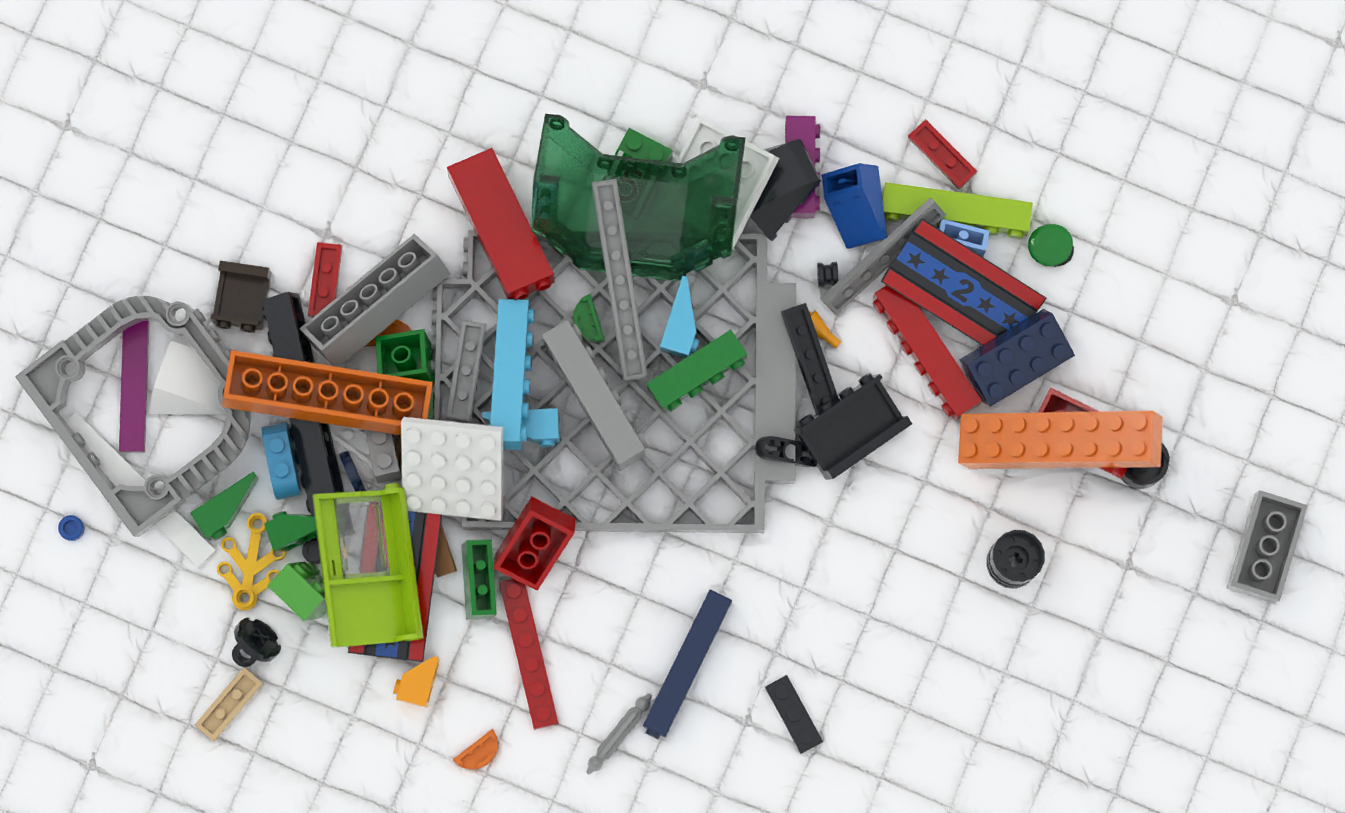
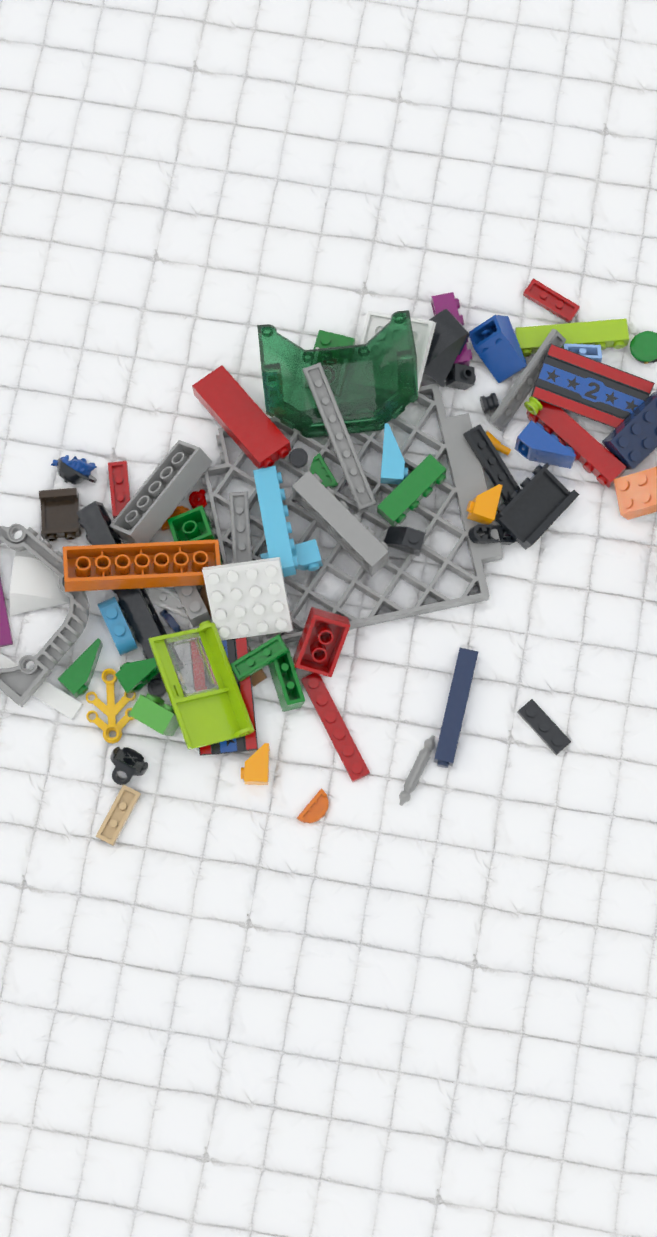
camera: 10 degrees left, 5 degrees down
(273, 242) = (74, 470): none -> hair
(417, 318) = (198, 498): none -> red plate
(451, 546) = (259, 657): none -> green tile
(562, 293) = (298, 458): none -> black tile
(672, 433) = (405, 539): none -> black slope
(785, 412) = (484, 506): none -> light orange slope
(799, 232) = (461, 377): none -> black brick
(876, 348) = (542, 447): none -> blue slope
(881, 294) = (533, 405): none -> lime bush

